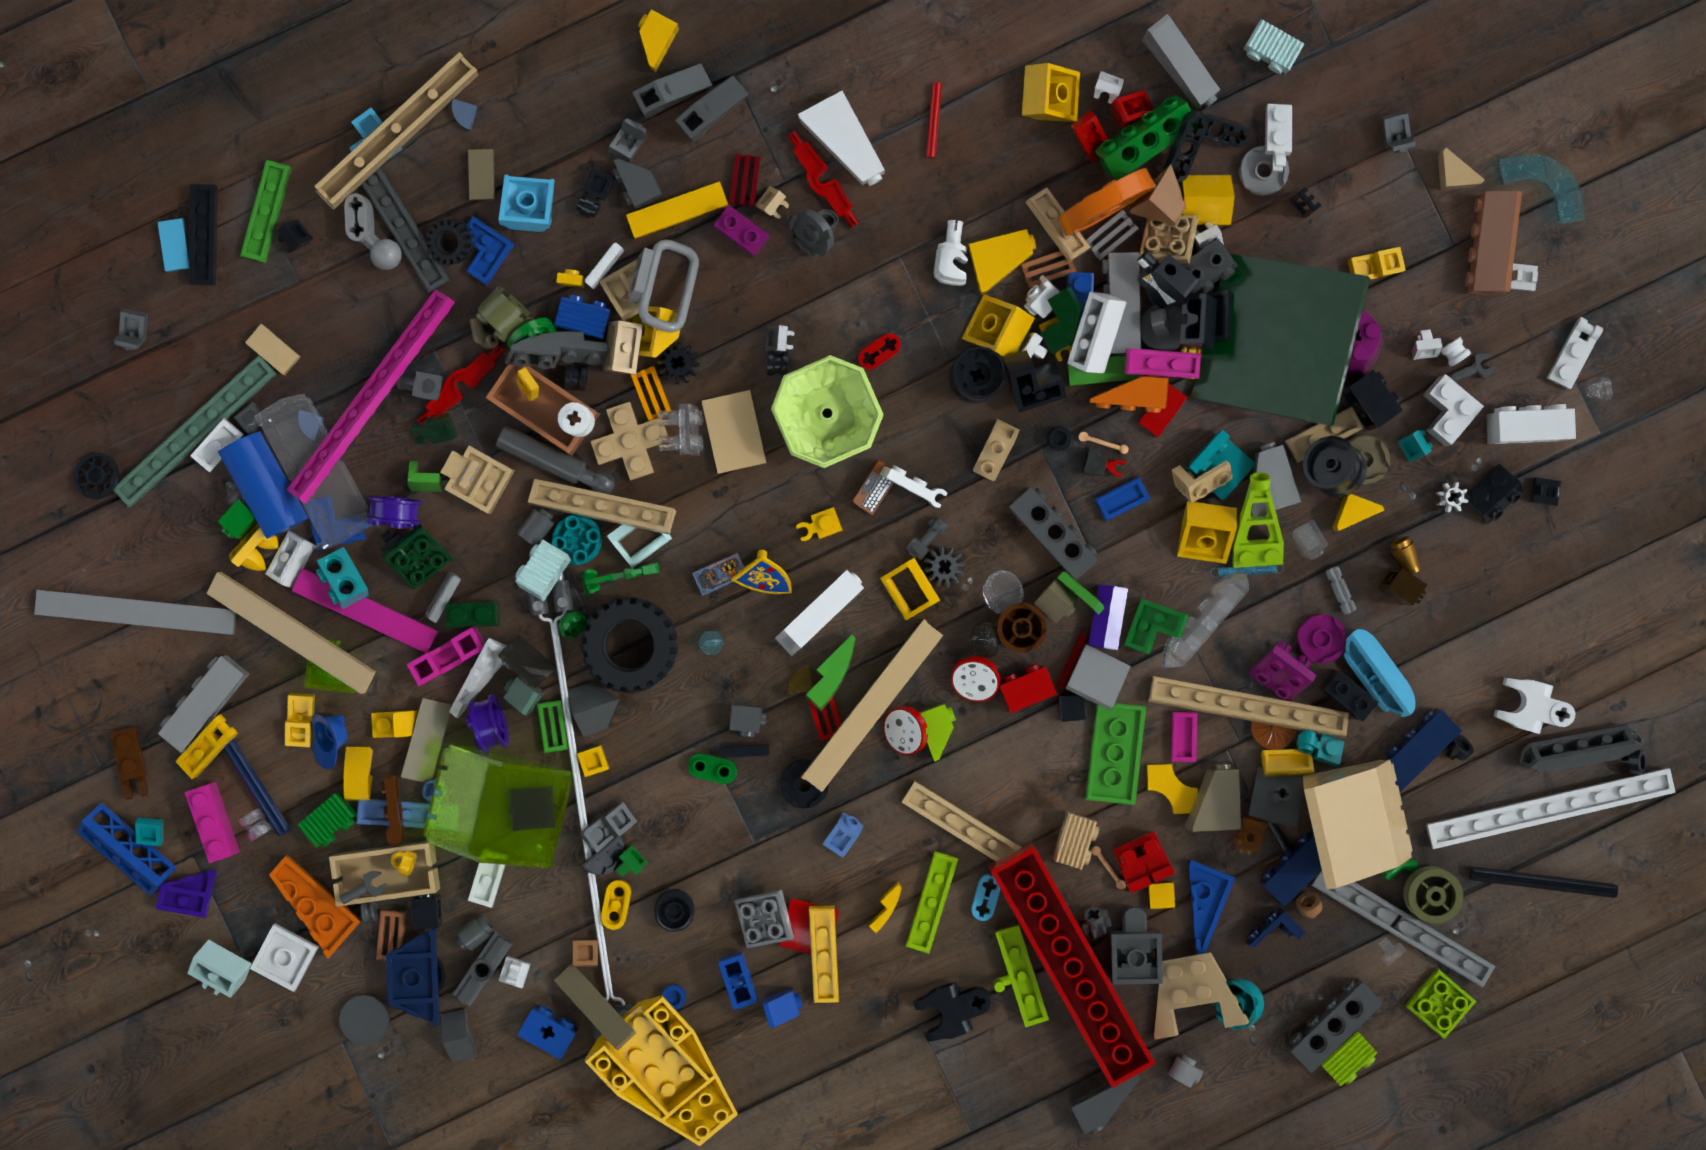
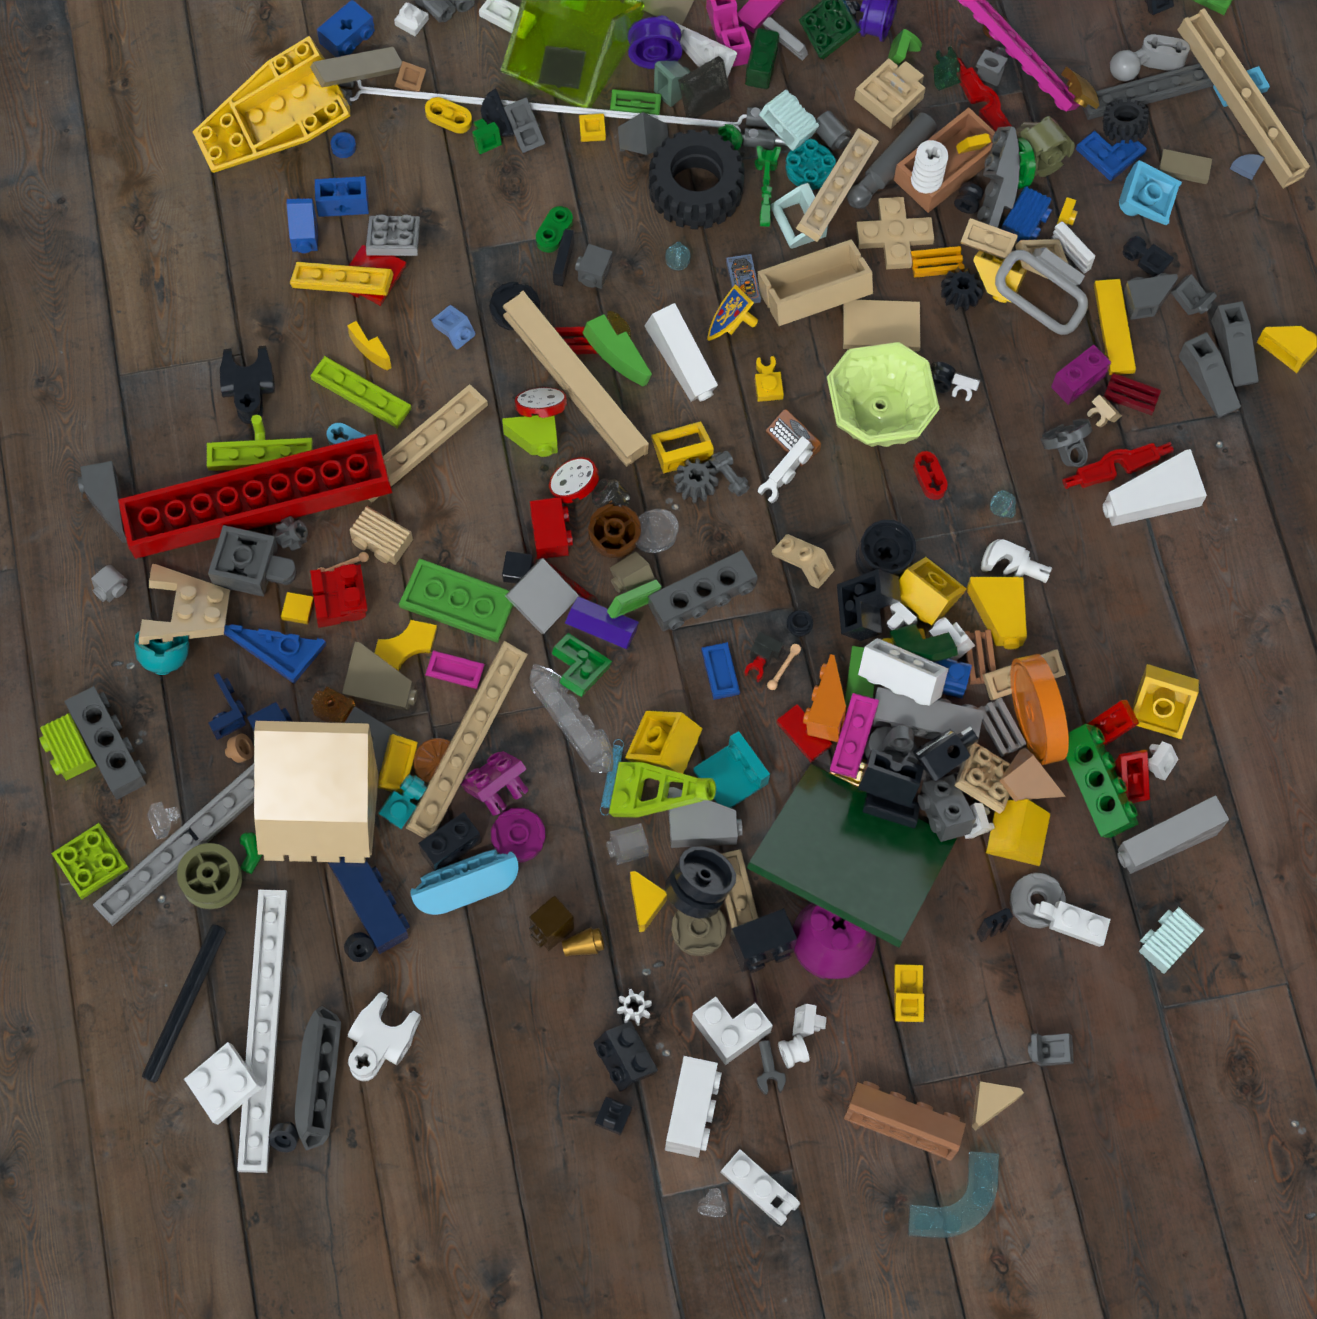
camera: 105 degrees right, 20 degrees down
(428, 290) = (1081, 88): none -> pearl gold slope
(674, 910) = (426, 163): black piece -> none
(688, 420) = (894, 275): clear plate -> none
(714, 503) = (815, 282): none -> tan piece
(893, 277) = (1003, 504): none -> clear light blue tile
(933, 120) = (1158, 583): red bar -> none
(1198, 488) = (716, 748): tan bracket -> none
(1201, 132) = (1093, 838): black beam -> none
(1340, 590) = (564, 867): light grey axle -> none
(1414, 445) = (700, 981): teal tile -> none
(1524, 277) = (858, 1151): white tile -> none
(1607, 827) = (222, 1083): none -> white plate

